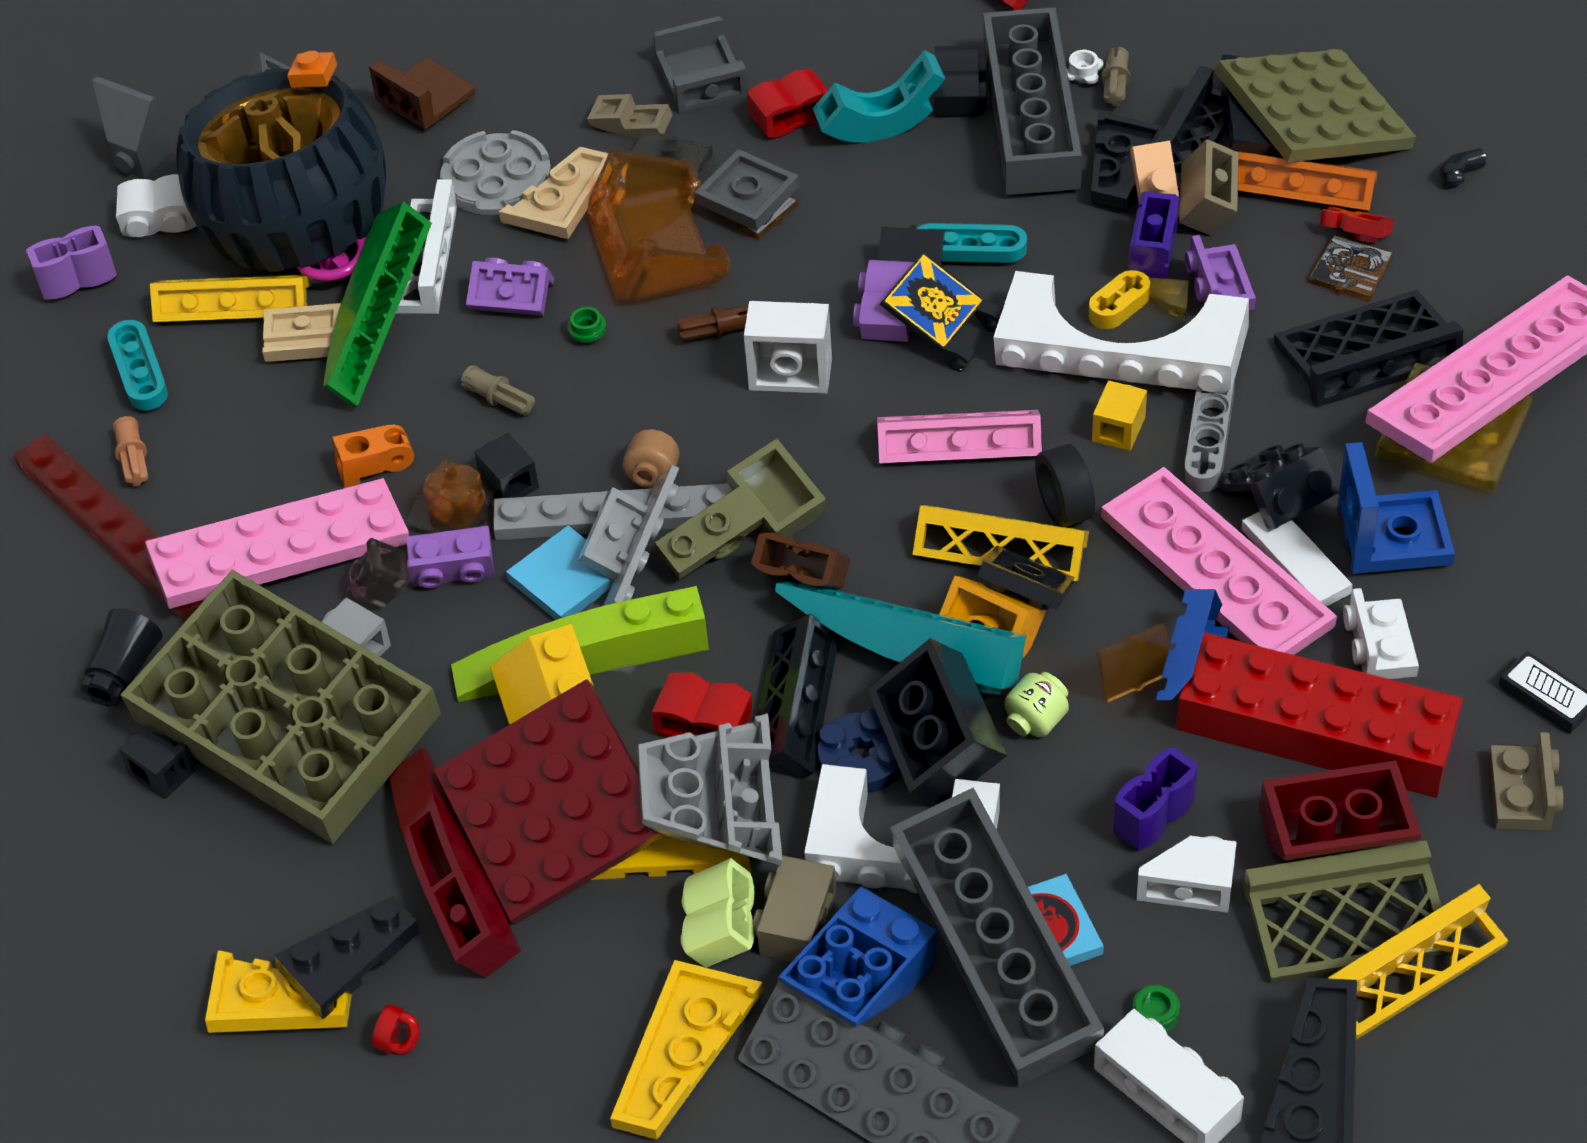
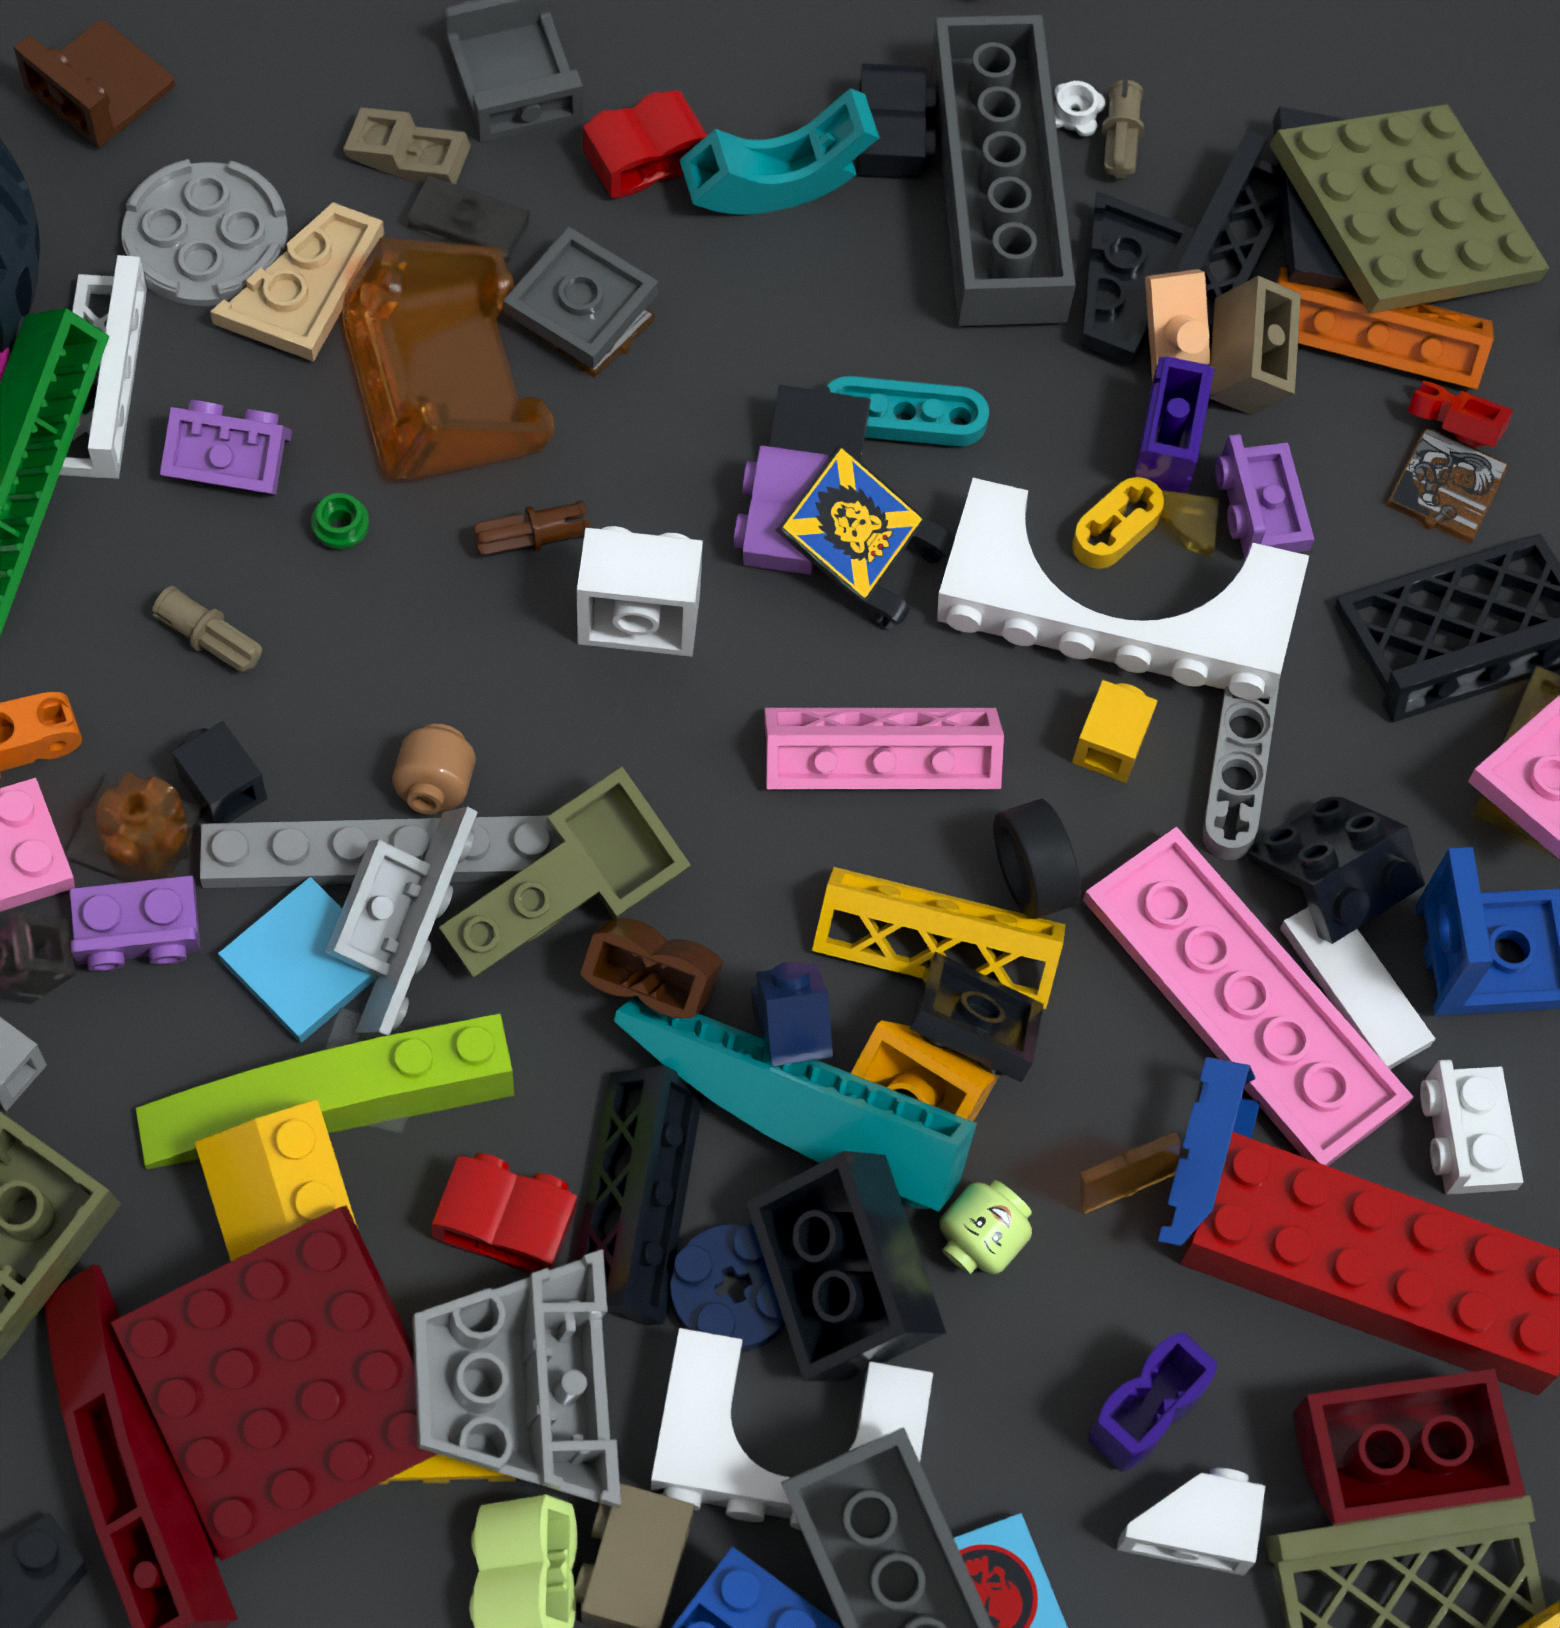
camera: 10 degrees left, 15 degrees up
(896, 573) = (793, 1013): none -> dark blue arch

